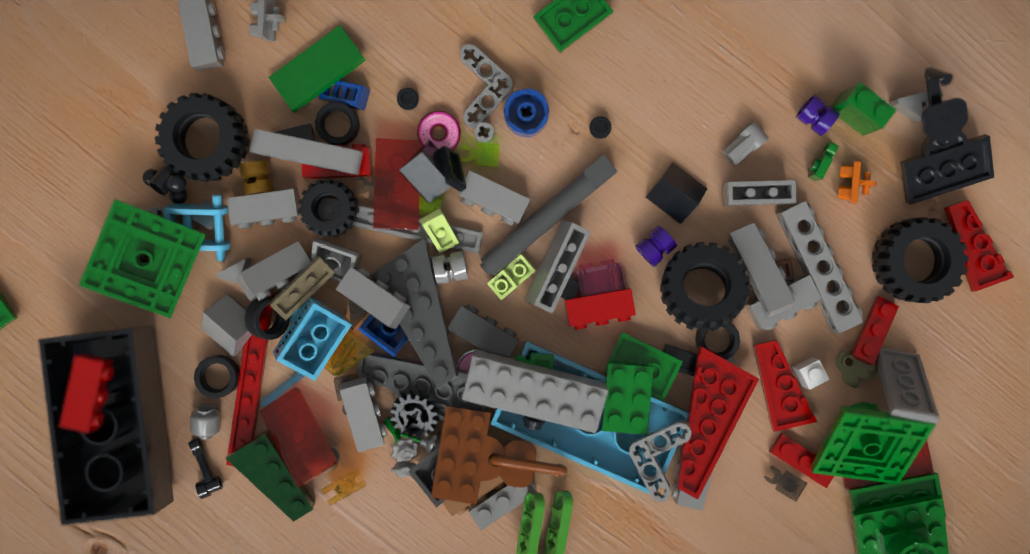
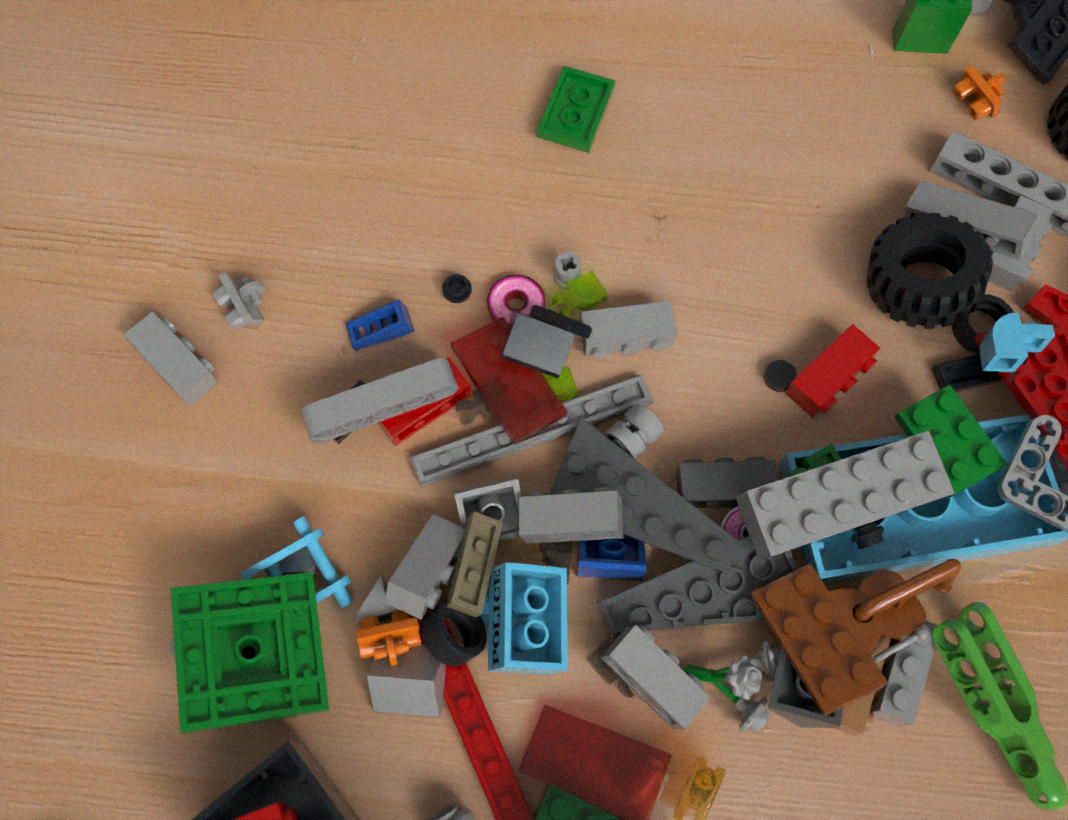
camera: 35 degrees left, 20 degrees down
(167, 181) = (220, 547): black piece -> none
(173, 132) = (216, 437): black tyre -> none
(200, 381) = (407, 758): black tyre -> none
(226, 300) = (389, 638): none -> orange hips
(256, 177) = (331, 472): pearl gold wheel -> none
(264, 208) = (365, 505): light grey brick -> none
(281, 390) = (534, 719): medium azure piece -> none
(310, 203) = (440, 426): black tyre -> none
(317, 69) = (332, 318): green tile -> none
(320, 123) = (385, 340): black tyre -> none
(347, 354) = (585, 612): clear yellow wing -> none
(407, 406) = (734, 633): black gear -> none
(439, 230) = (593, 395): yellowish green slope -> none
(490, 80) = (536, 219): light grey beam -> none
(511, 276) = (709, 402): yellowish green slope -> none
(519, 490) = (920, 633): none -> light grey hinge
(525, 100) = (599, 221): blue brick -> none
(548, 215) = (699, 314): dark grey brick -> none
(557, 266) = (754, 354): light grey brick -> none
(599, 278) = (809, 338): clear pink brick -> none
(600, 127) = (686, 194): black plate -> none
(635, 352) = (907, 390): green plate -> none
(653, 248) = (840, 268): dark purple wheel -> none
(676, 193) = (816, 211): black slope -> none
(706, 364) = (1010, 340): none -> medium azure brick
(748, 140) = (845, 117): light grey piece -> none
(759, 193) = (899, 153): light grey brick -> none
(818, 115) = (892, 54): dark purple wheel -> none
(820, 166) = (936, 95): green plate -> none

